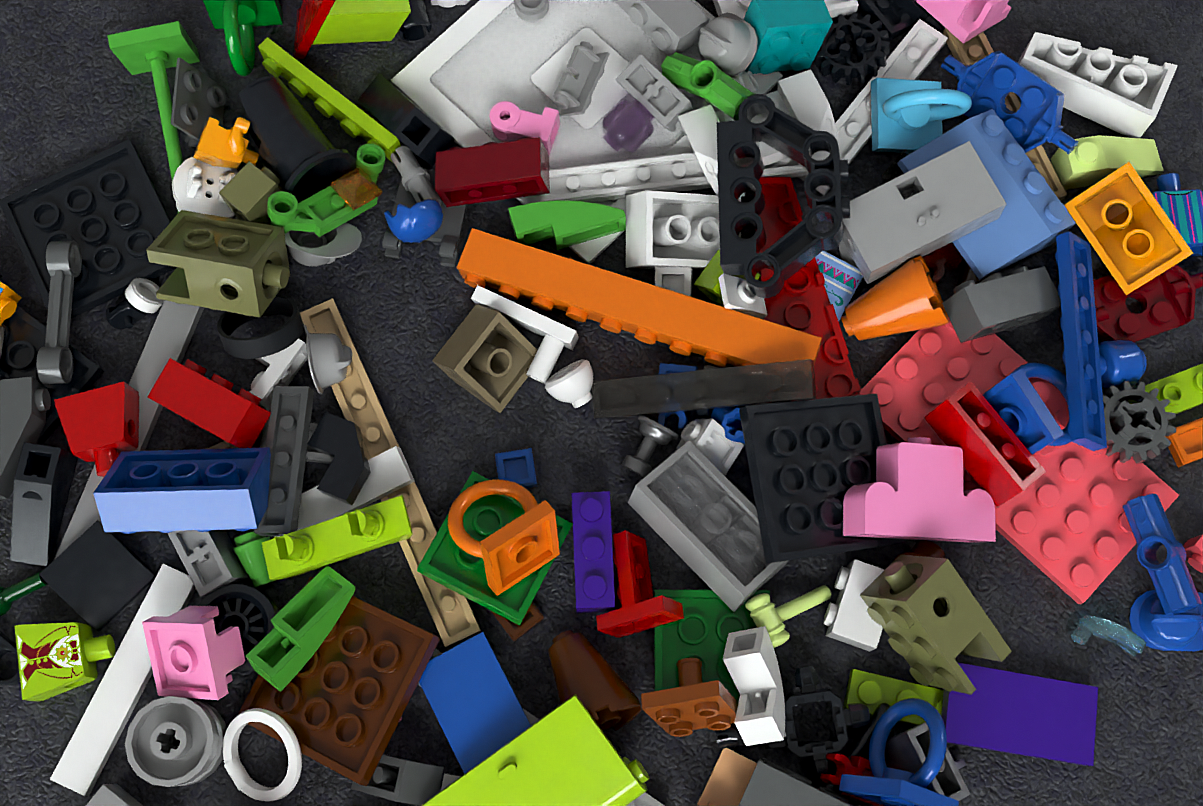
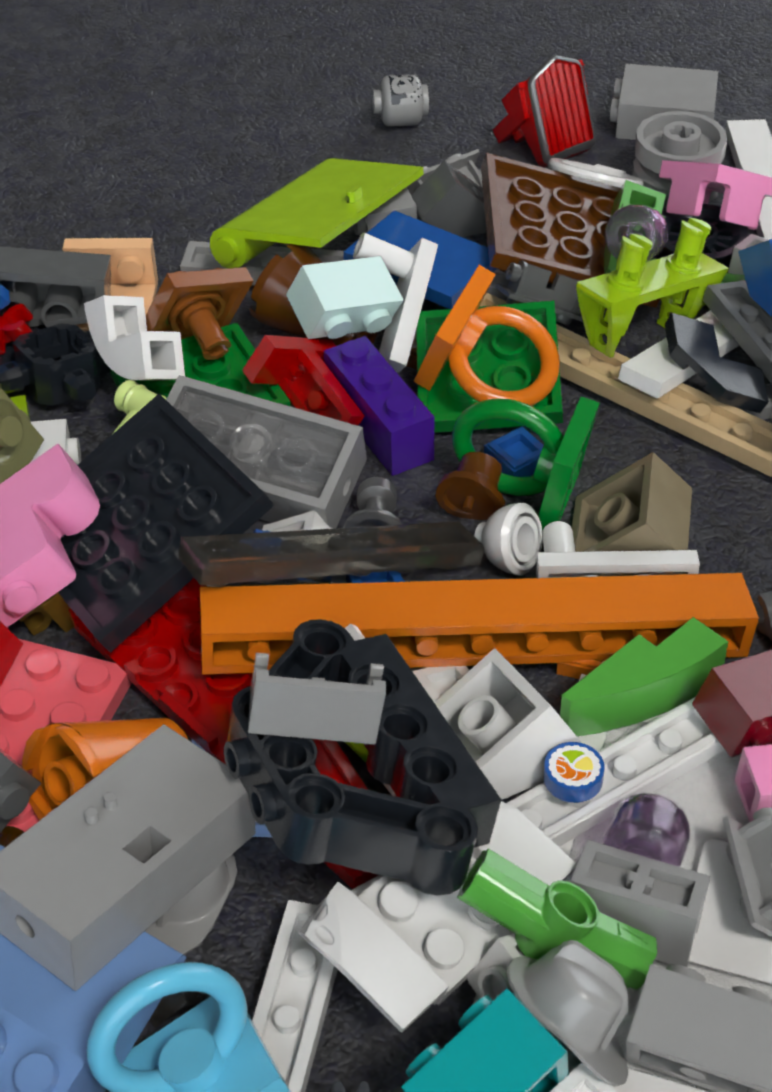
camera: 155 degrees right, 30 degrees down
(322, 581) = (627, 218): none -> head
(408, 604) = (529, 285): none -> dark grey hinge
(510, 648) = (414, 273): none -> white piece
(511, 410) = (560, 456): none -> green tile
(572, 431) = (472, 488): none -> reddish brown piece
(578, 638) = (344, 297): none -> light aqua brick
(642, 176) = (573, 772): none -> tile
(796, 199) = (315, 706): none -> light grey hinge

